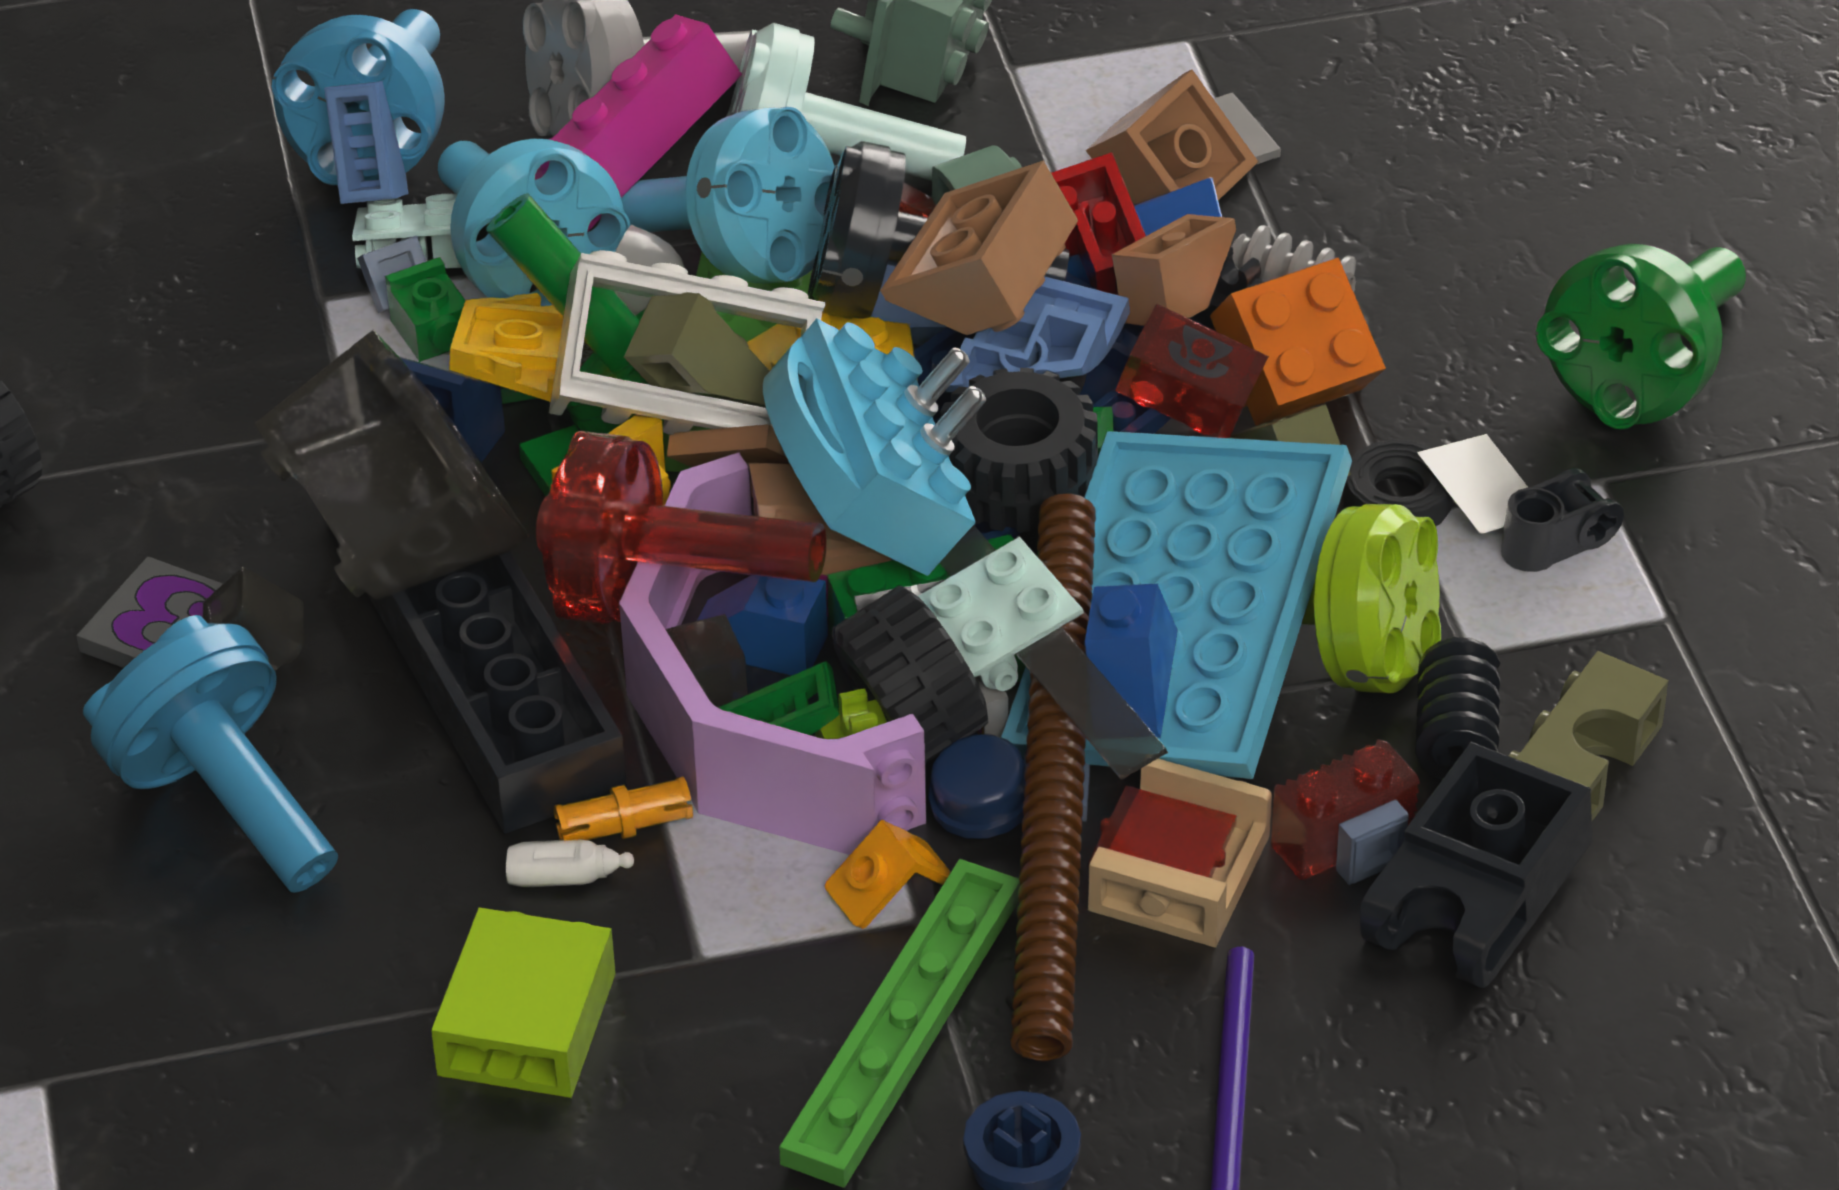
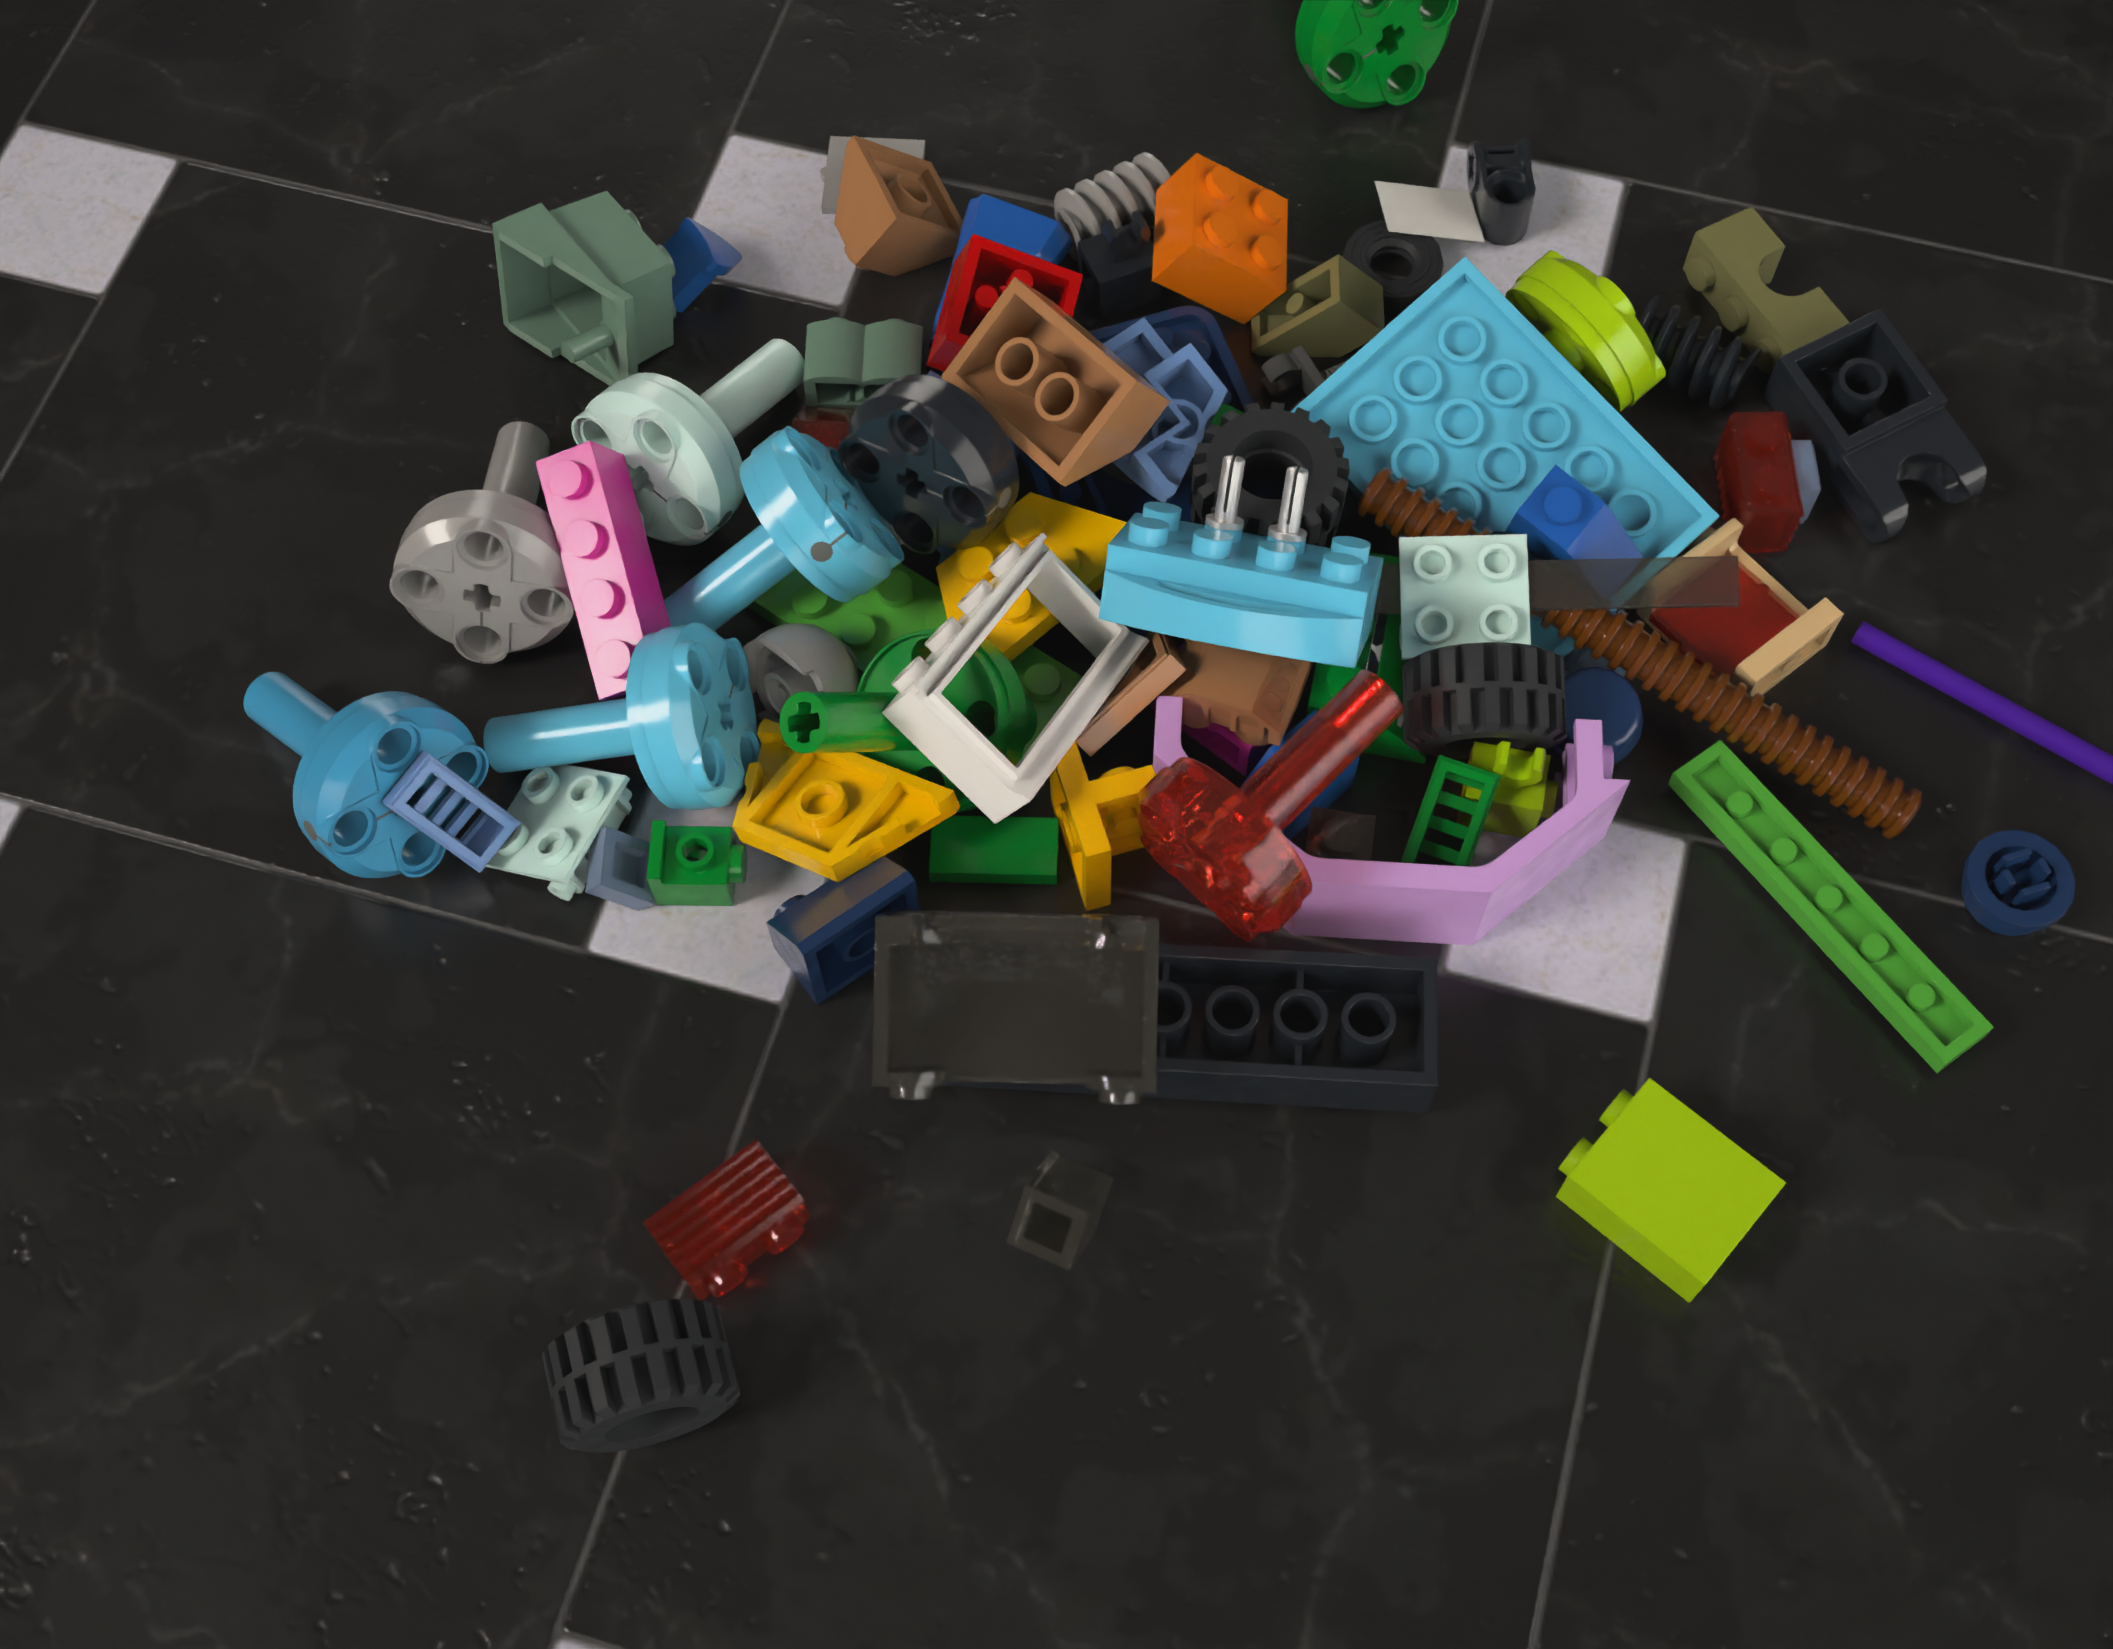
camera: 60 degrees left, 20 degrees up
(131, 457) = (729, 1222): none -> clear red brick
(143, 610) = (972, 1289): tile -> none
(189, 710) = (1193, 1321): dark azure piece -> none
(561, 863) = (1492, 1083): white piece -> none
(624, 811) = (1461, 1002): light orange pin -> none
(694, 351) = (1034, 666): olive slope -> none
(880, 870) = (1651, 839): light orange bracket -> none
(1019, 61) = (697, 260): none -> blue tile
(1174, 266) = (1114, 266): medium nougat slope -> none
(1191, 373) = (1238, 322): clear red brick -> none

